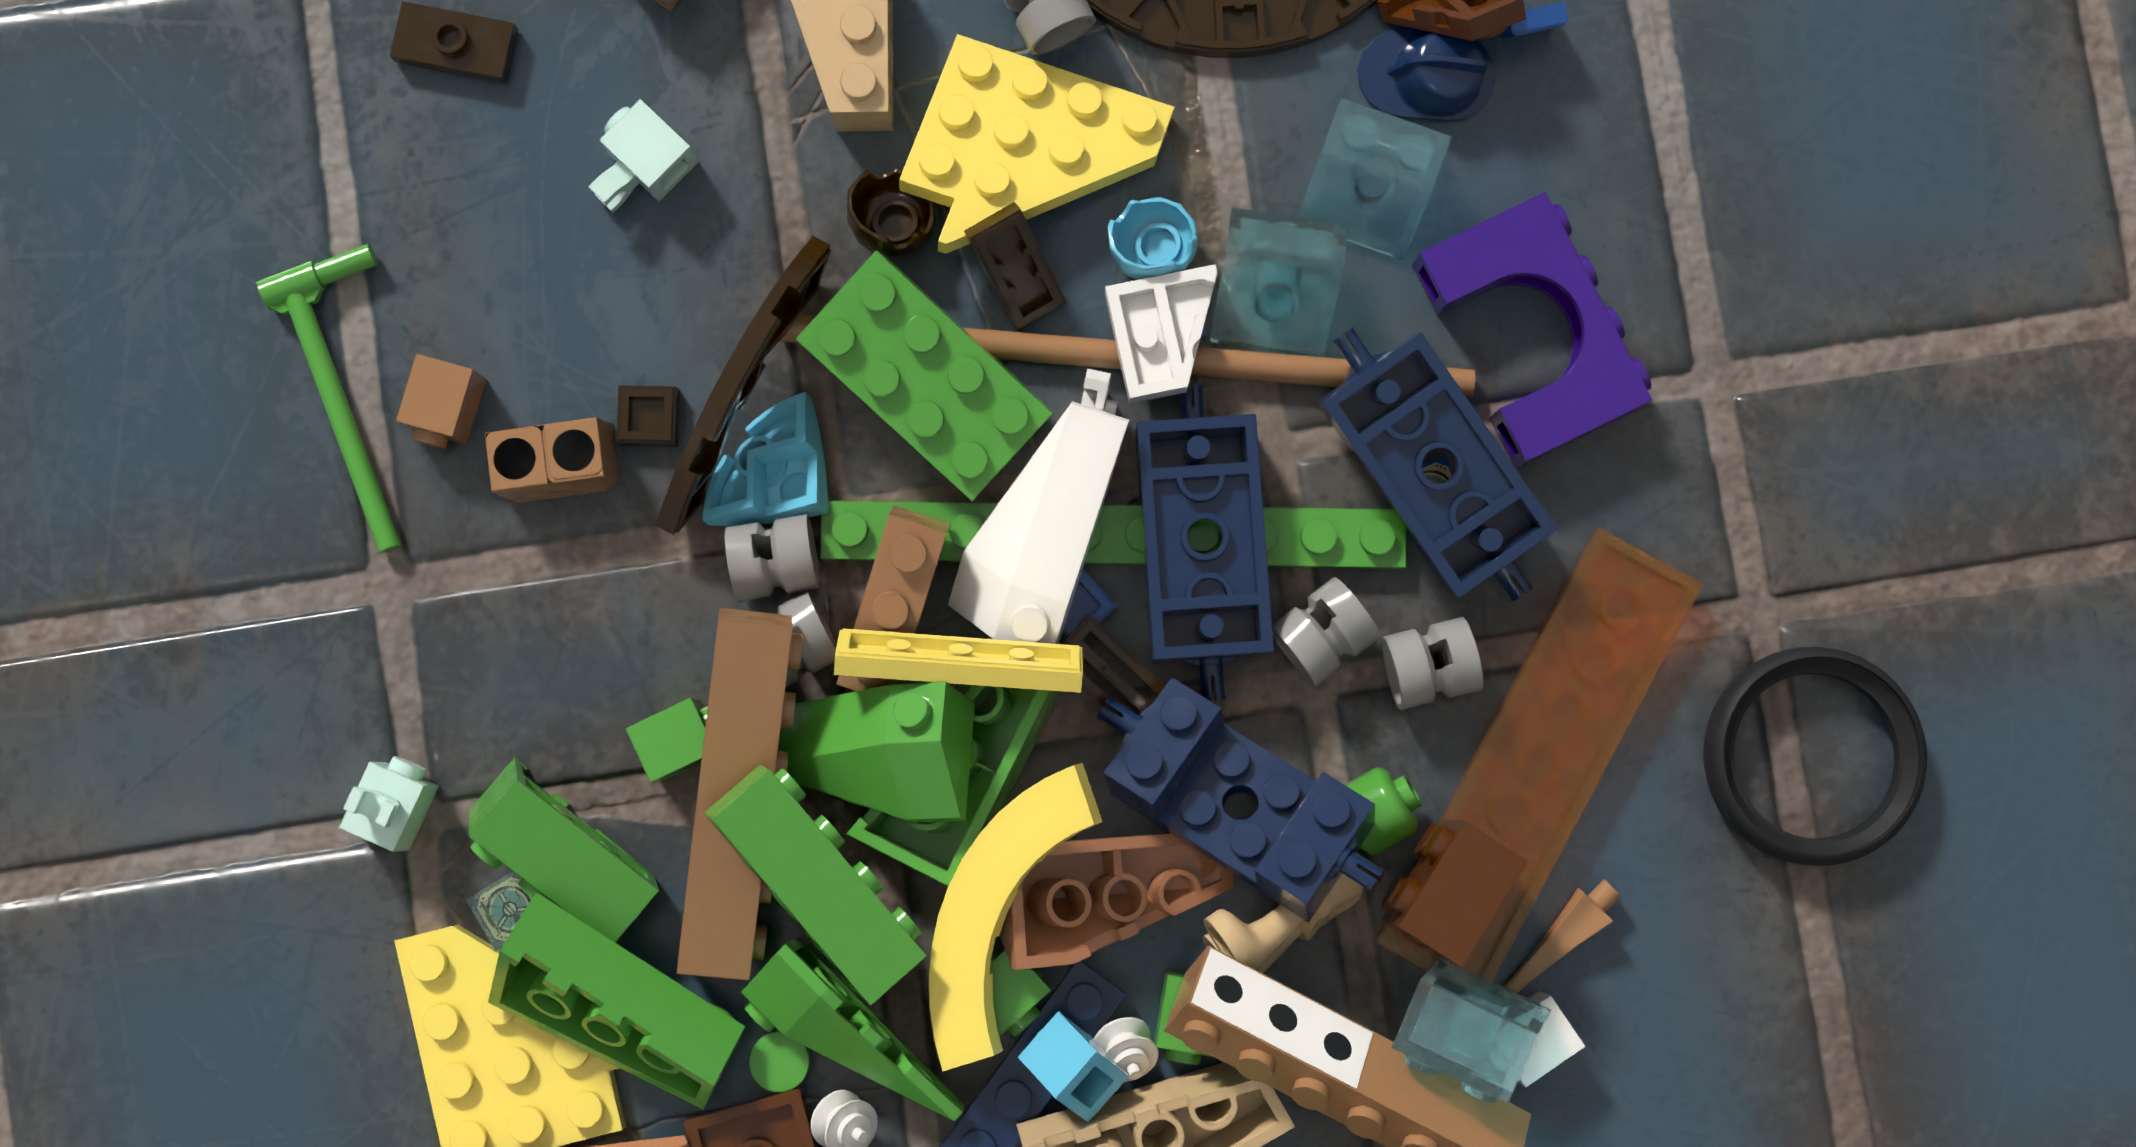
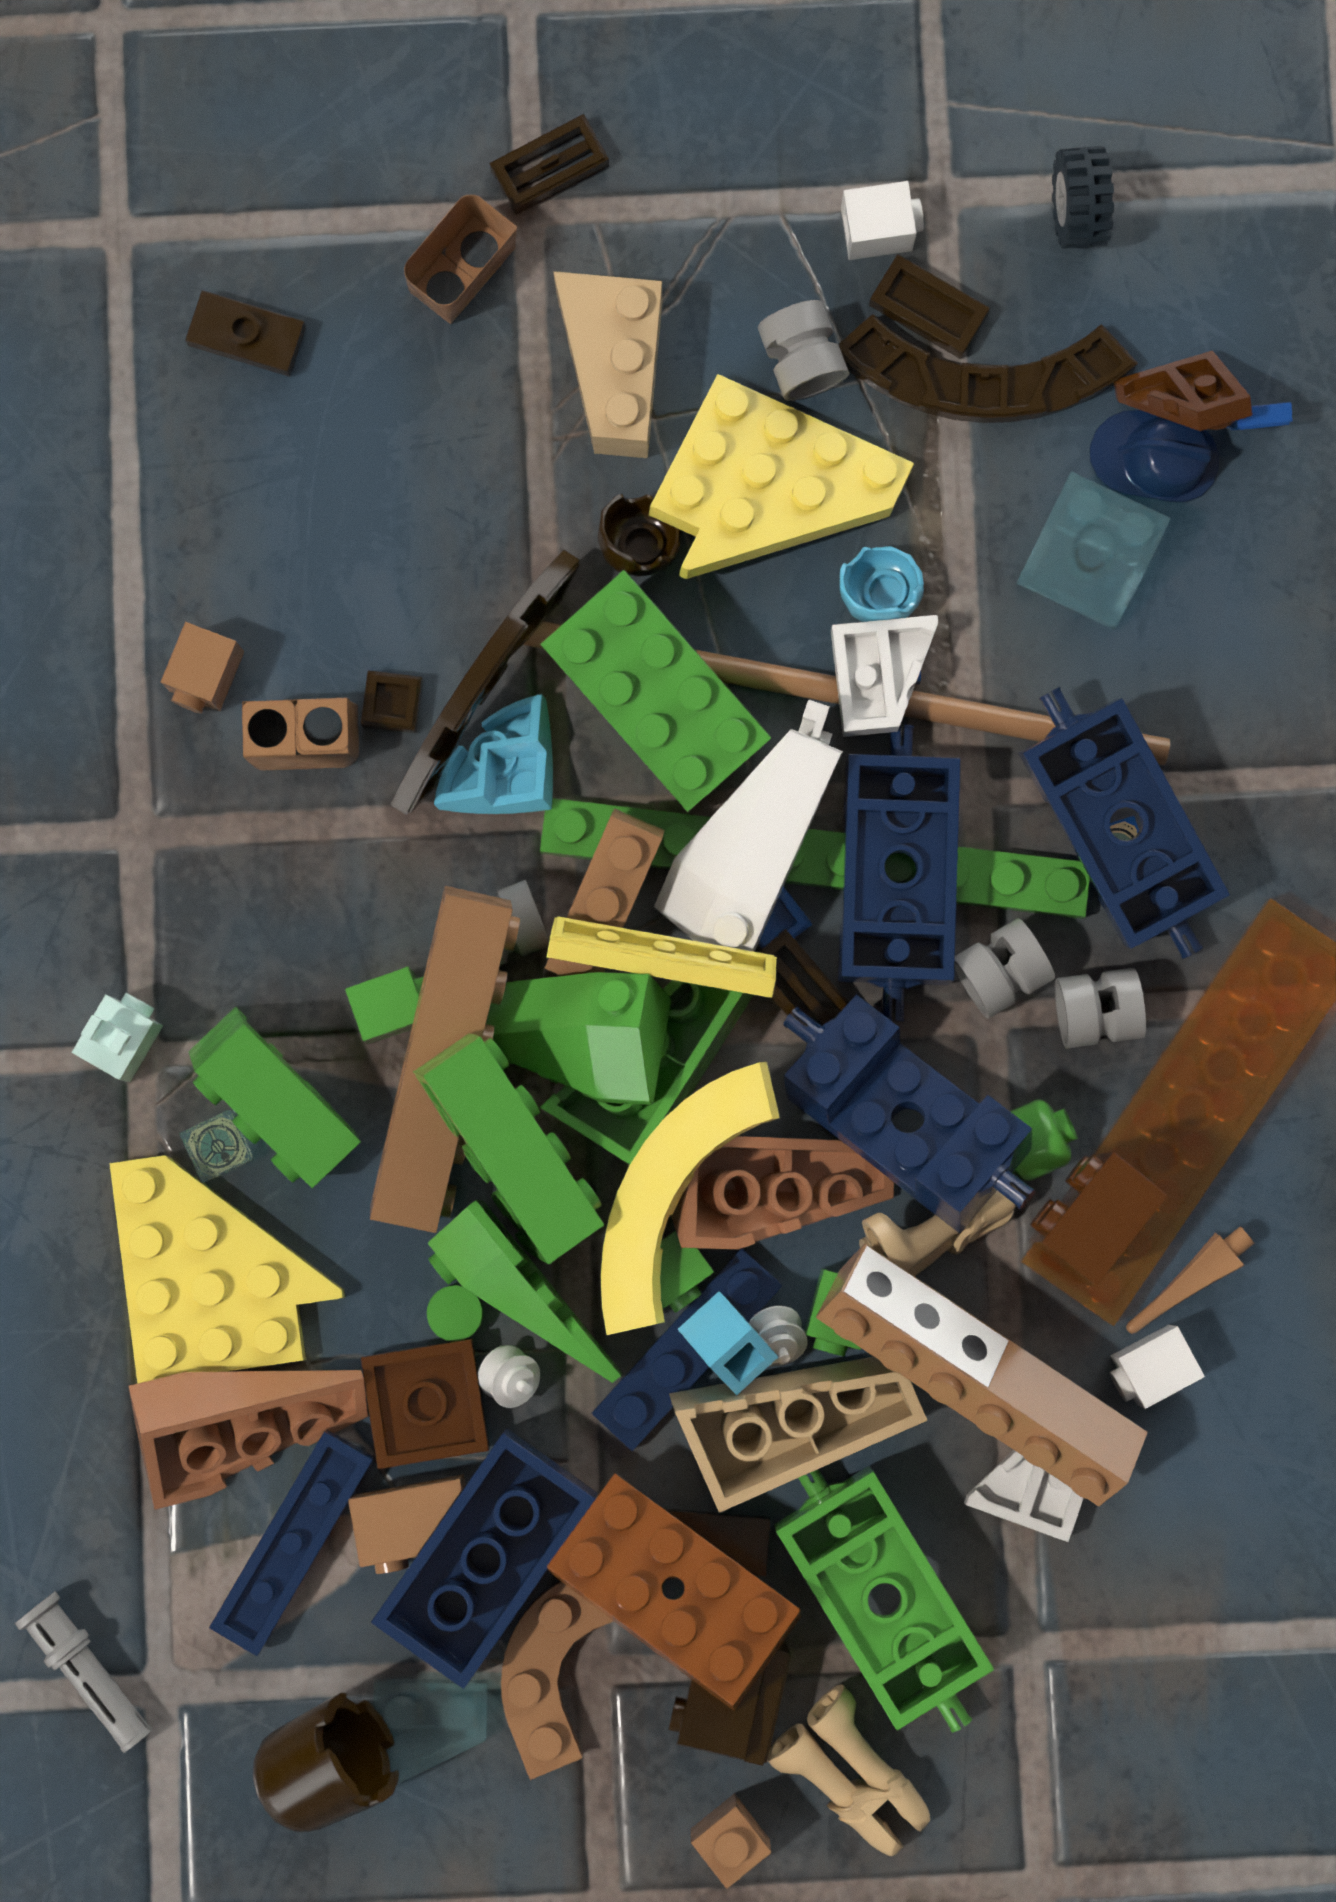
camera: 10 degrees right, 0 degrees up
(294, 294) = (74, 553): bright green bar -> none
(611, 1003) = (307, 1241): bright green wedge -> none
(644, 154) = (414, 457): light aqua brick -> none
(793, 553) = (513, 840): light grey wheel -> none
(1015, 266) = (750, 597): dark brown plate -> none
(1278, 283) = (994, 638): clear light blue slope -> none
(1470, 1031) = (1098, 1348): clear light blue slope -> none
(1534, 251) = (1237, 632): dark purple arch -> none

